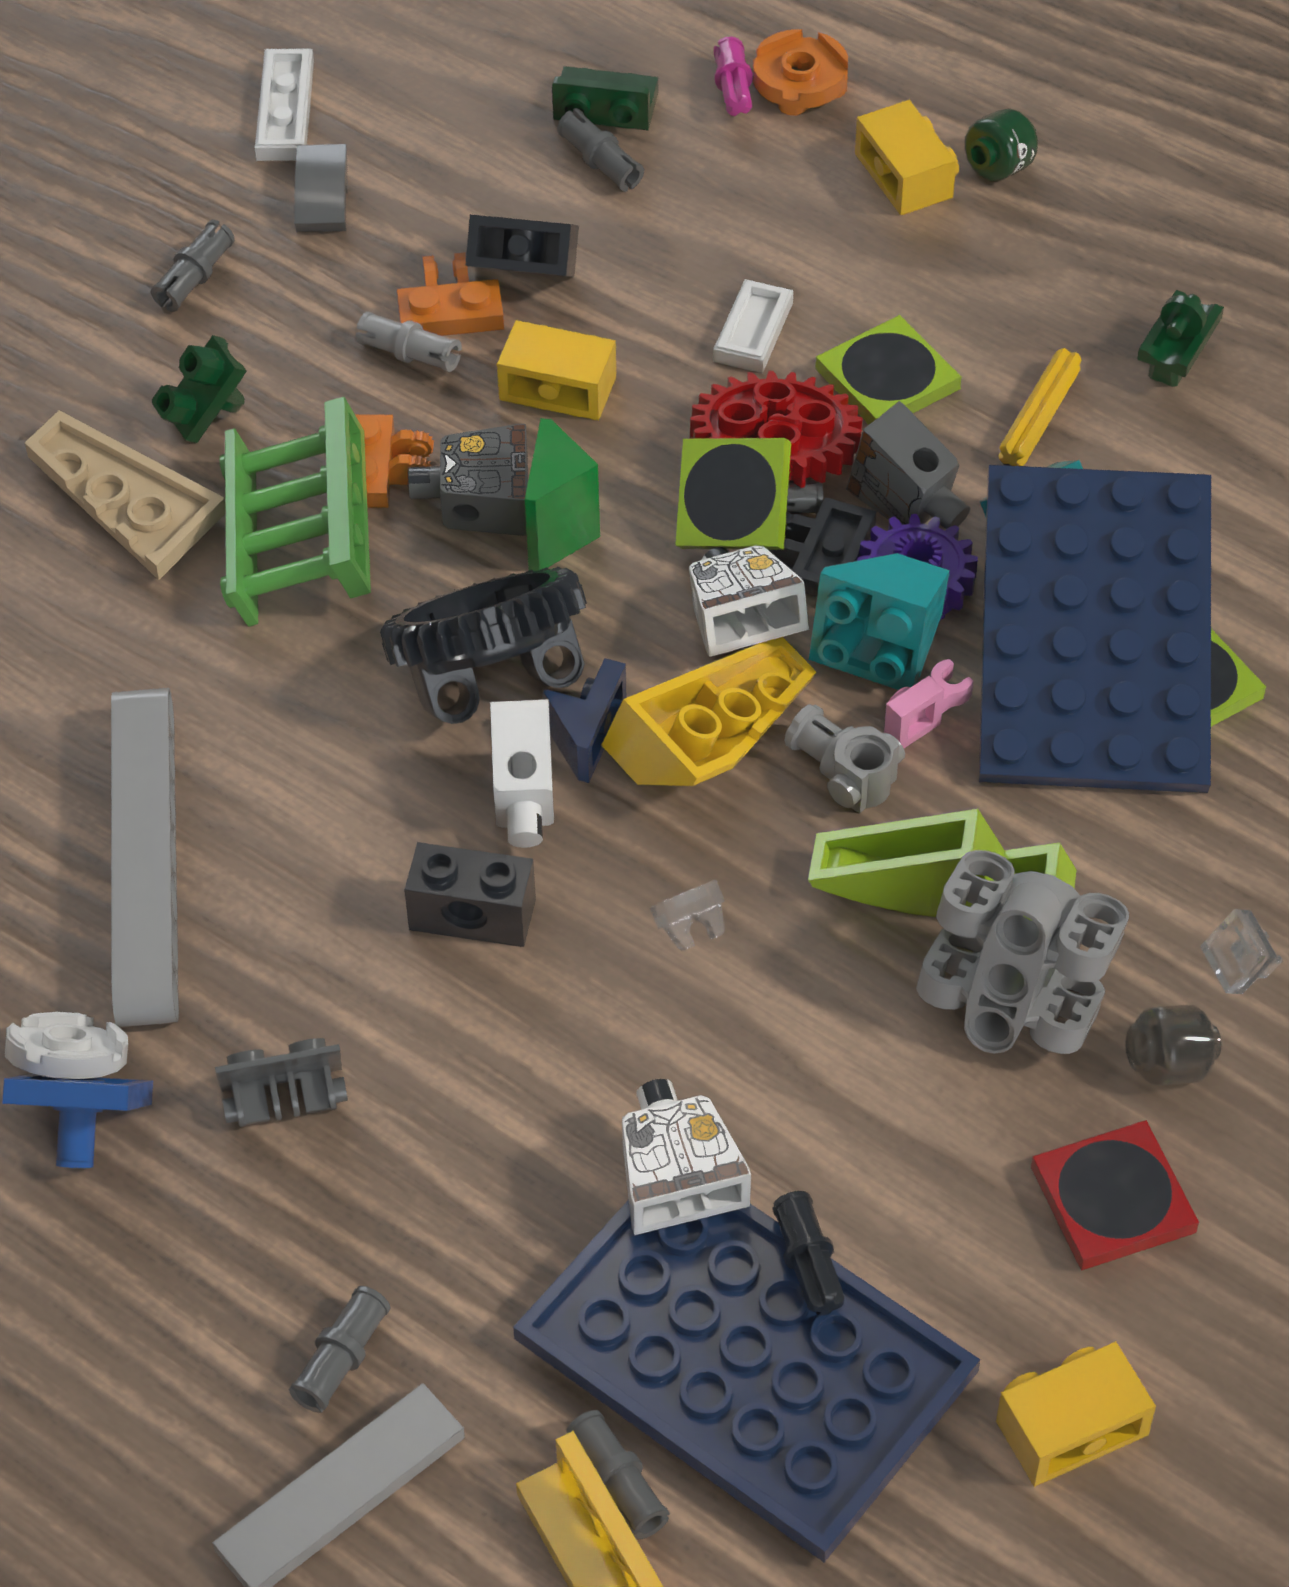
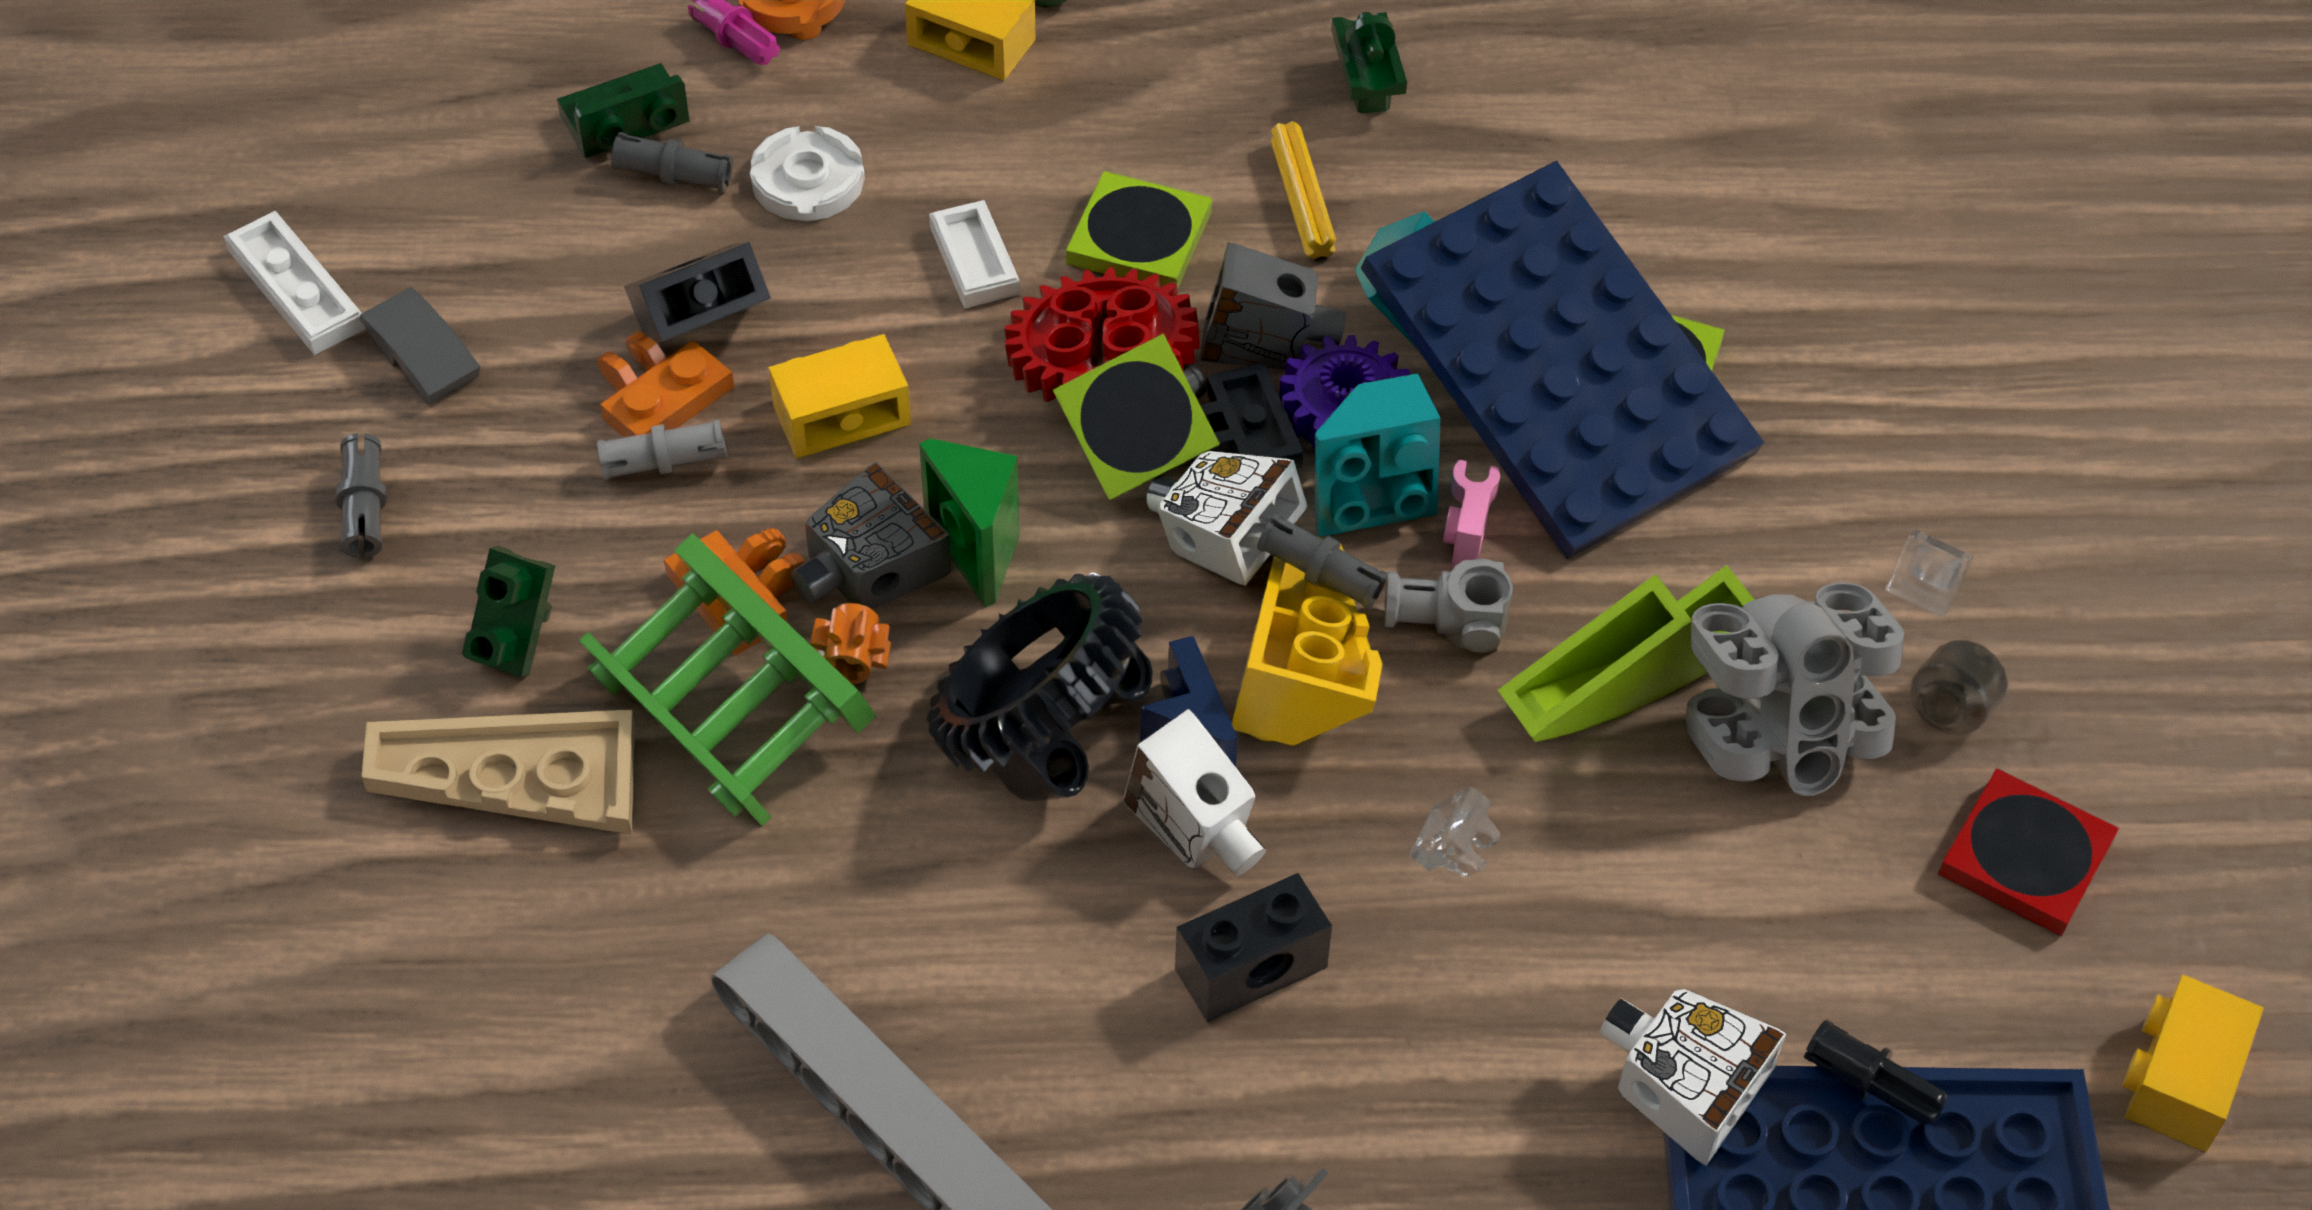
camera: 40 degrees left, 0 degrees up
(402, 537) = (852, 641): none -> orange gear
(690, 207) = (807, 173): none -> white tile
(767, 666) = (1322, 561): none -> dark grey pin

